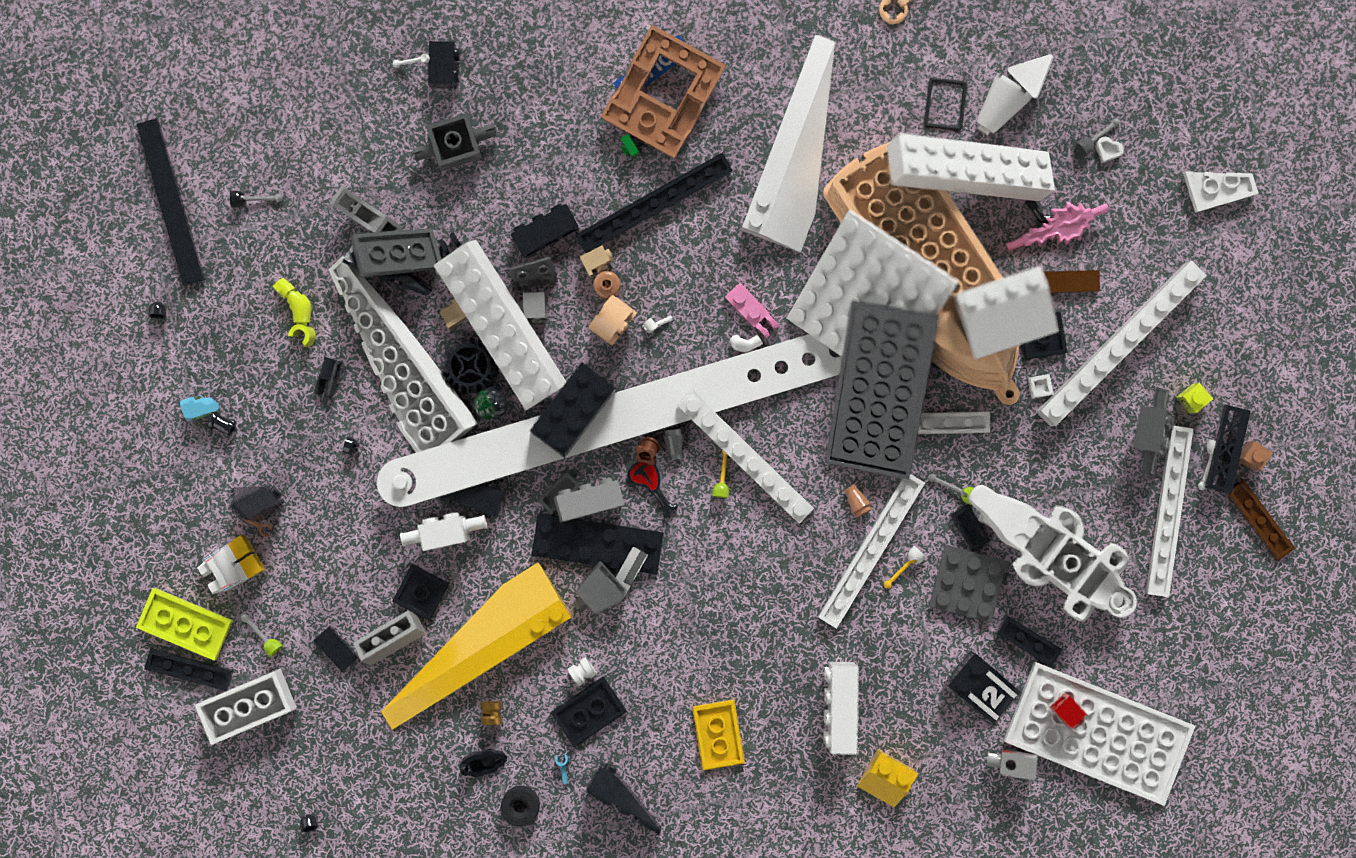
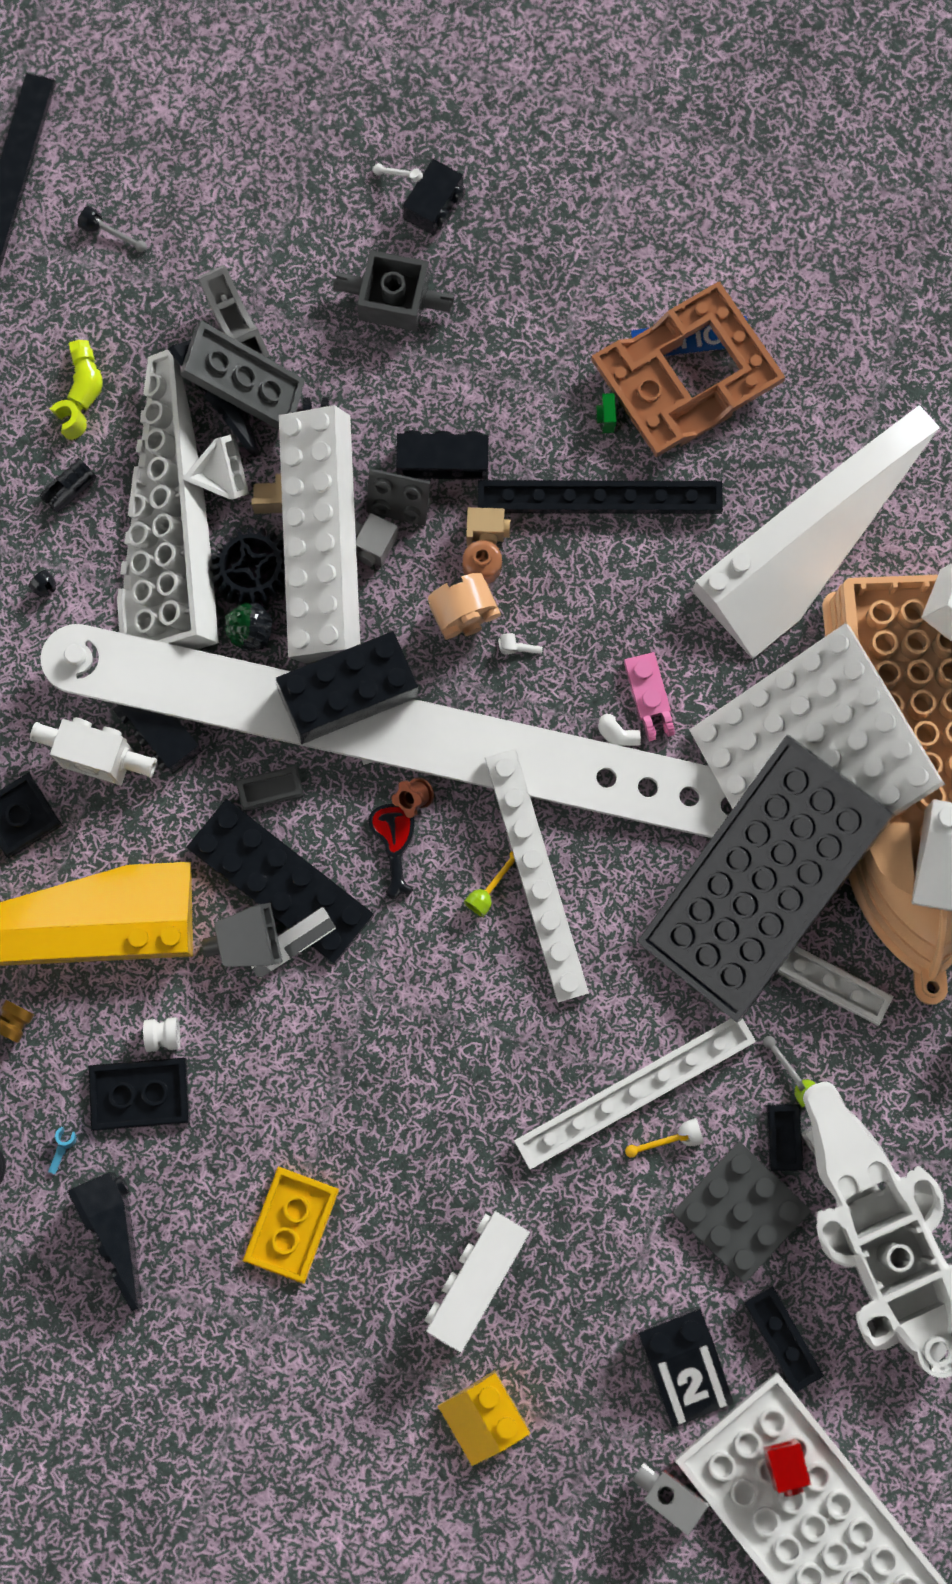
camera: 30 degrees right, 10 degrees down
(416, 317) = (220, 469): none -> white slope
(588, 500) = (301, 816): light grey brick -> none
(674, 442) = (454, 805): dark grey cone -> none
(857, 501) = (652, 1018): nougat cone -> none

